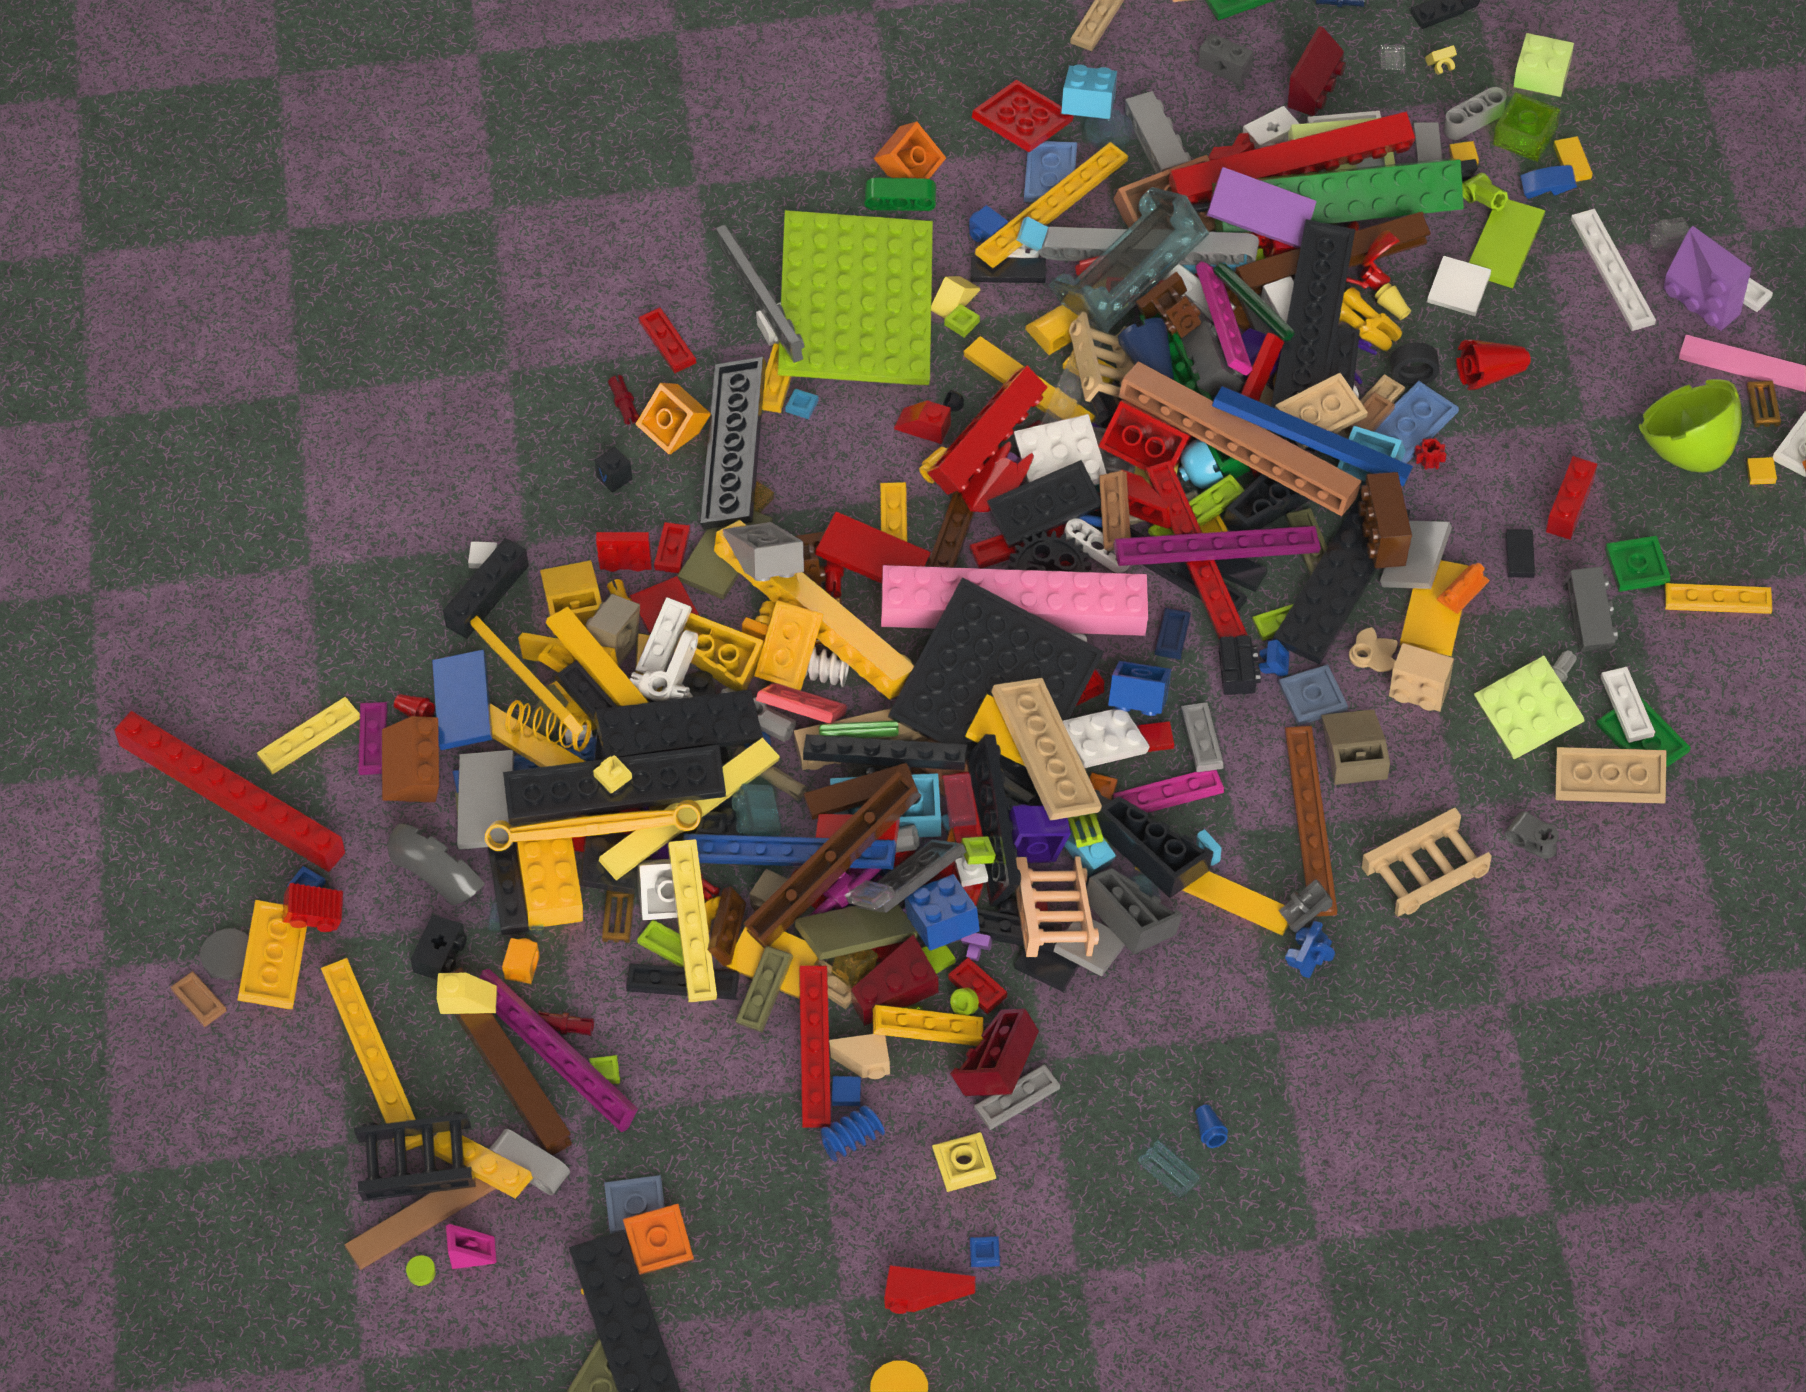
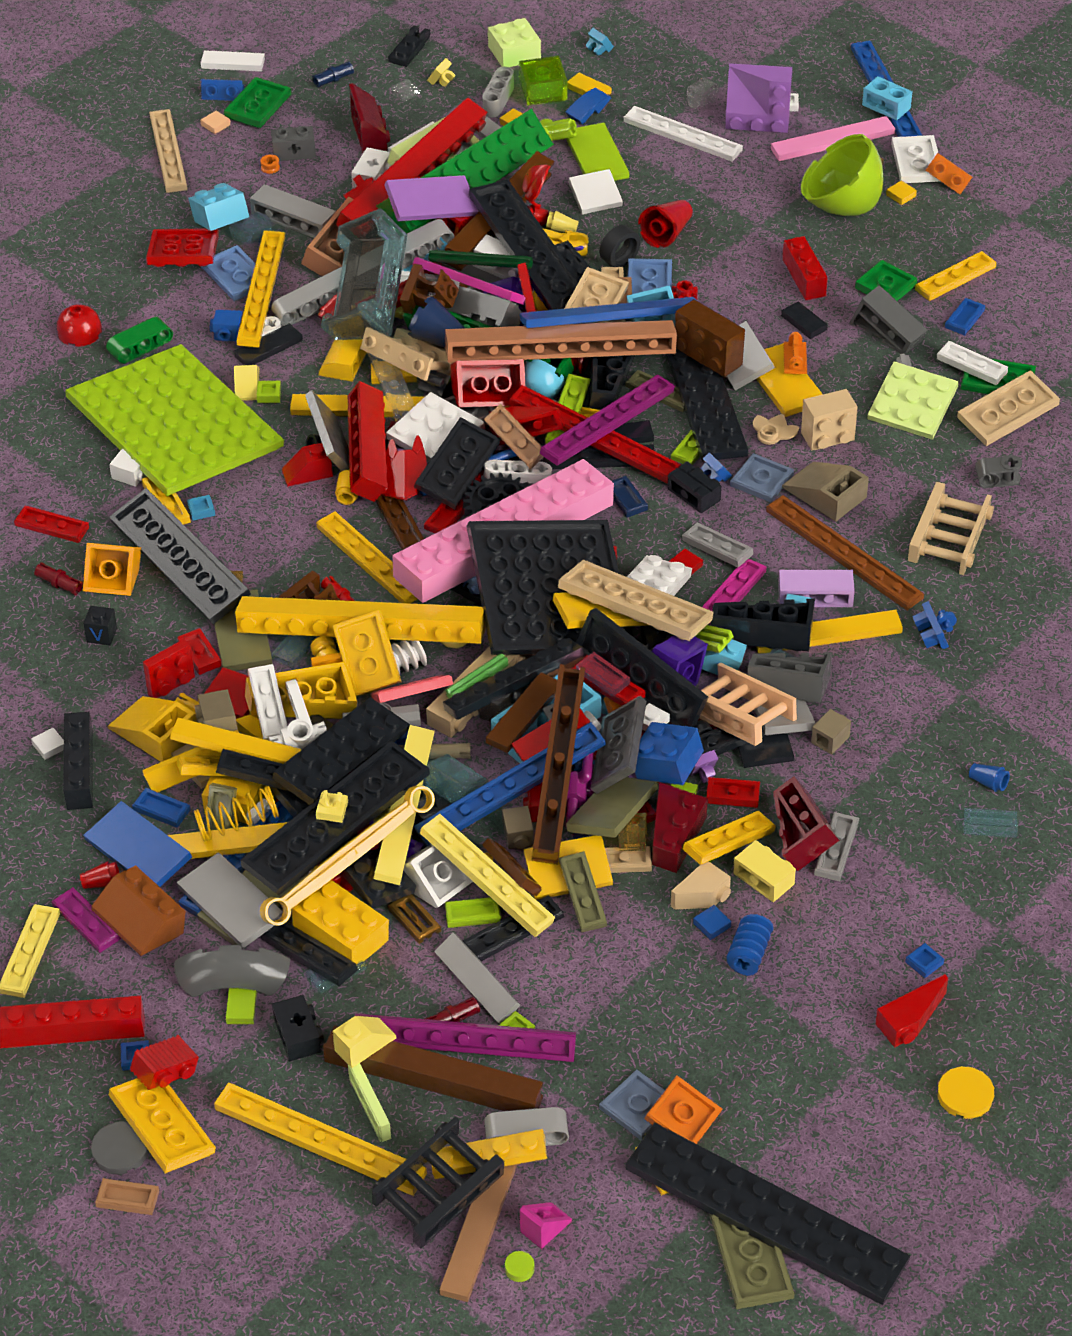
camera: 40 degrees left, 10 degrees down
(418, 899) = (241, 1006): none -> lime tile
(434, 1052) = (369, 1102): none -> yellowish green tile
(514, 684) = (161, 807): none -> blue tile
(521, 960) = (373, 993): light orange brick -> none
(526, 675) = (186, 787): yellow tile -> none
(613, 1005) = (477, 978): none -> light grey tile
(746, 597) = (292, 649): none -> clear light blue tile
(762, 297) = (103, 448): dark grey plate -> none
(766, 550) = (292, 596): light grey slope -> none
(814, 1047) = (663, 904): red plate -> none
(860, 145) = (78, 325): none -> red cylinder
(866, 548) = (355, 564): red tile -> none
(870, 895) = (610, 768): clear tile -> none
(910, 154) = (119, 310): orange slope -> none
(929, 1076) = (764, 871): none -> light yellow brick
(959, 1175) = (847, 922): light yellow piece -> none
(964, 1001) = (735, 807): lime tile -> none
(966, 397) = (329, 431): none -> flat silver tile
(978, 850) = (654, 696): lime plate -> none
(1032, 233) = (269, 308): medium azure tile -> none
(1116, 987) = (831, 731): none -> dark tan brick
(1139, 688) = (648, 534): blue brick -> none
(1186, 62) = (270, 164): none -> orange bush
(1244, 840) = (828, 587): none -> lavender brick
(1306, 905) = (907, 597): dark grey hips -> none
(1632, 112) = (599, 41): none -> dark azure tile
(1680, 648) = (965, 316): none -> blue tile

